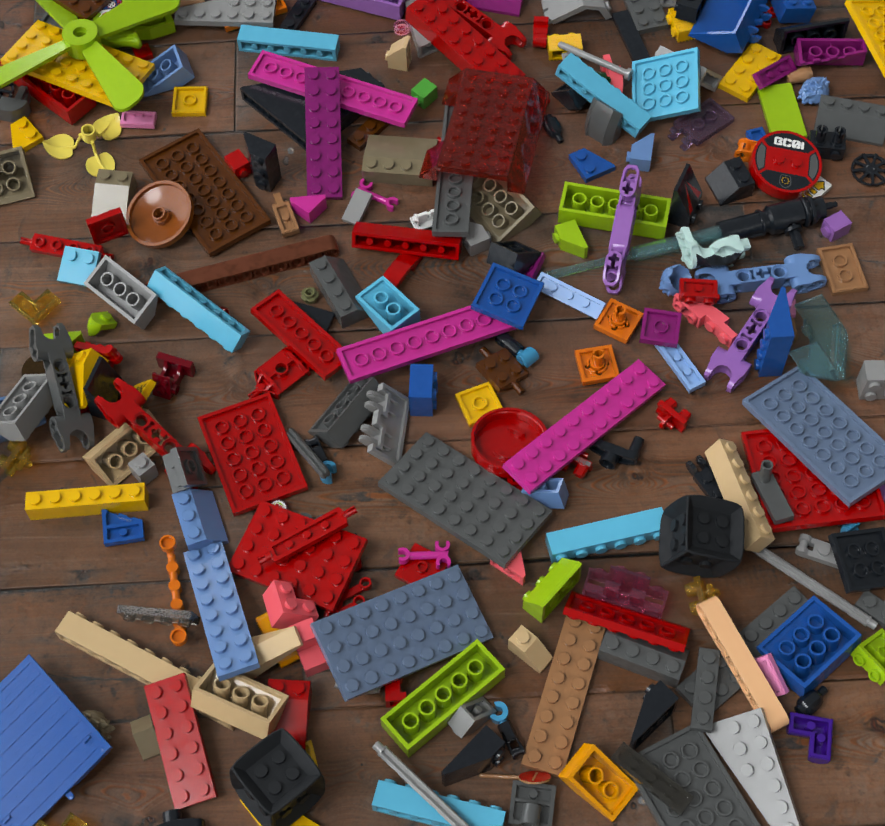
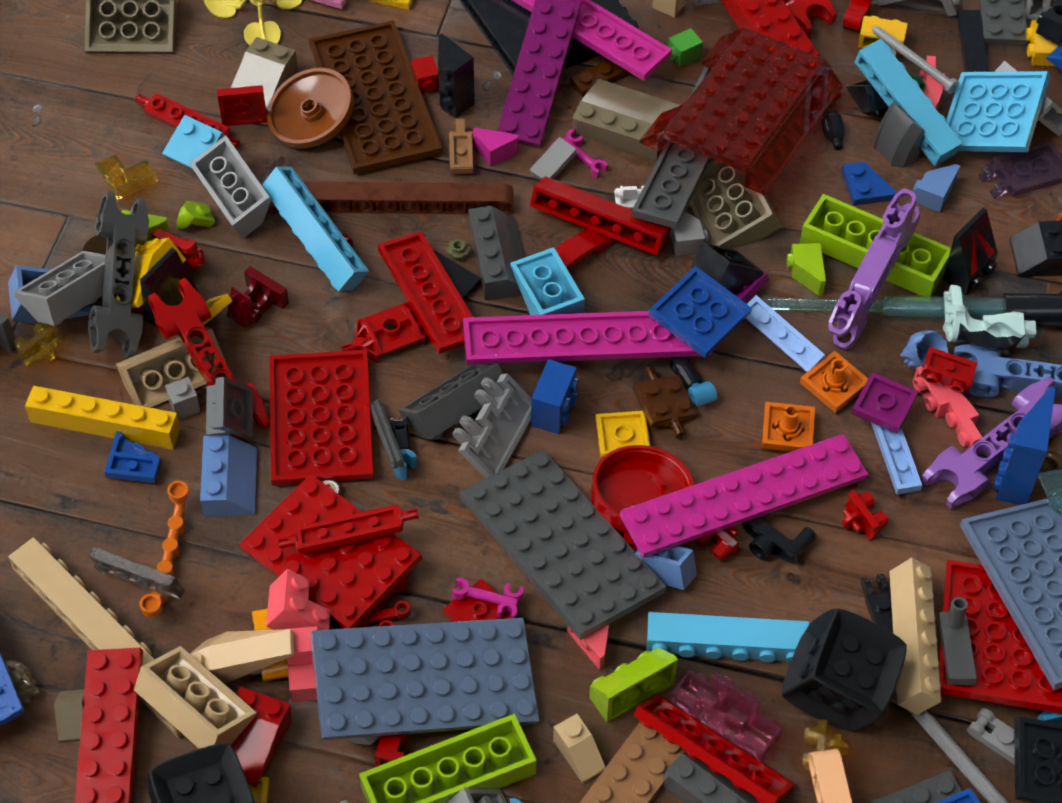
camera: 15 degrees right, 5 degrees down
(221, 611) = (212, 590): medium blue plate -> none

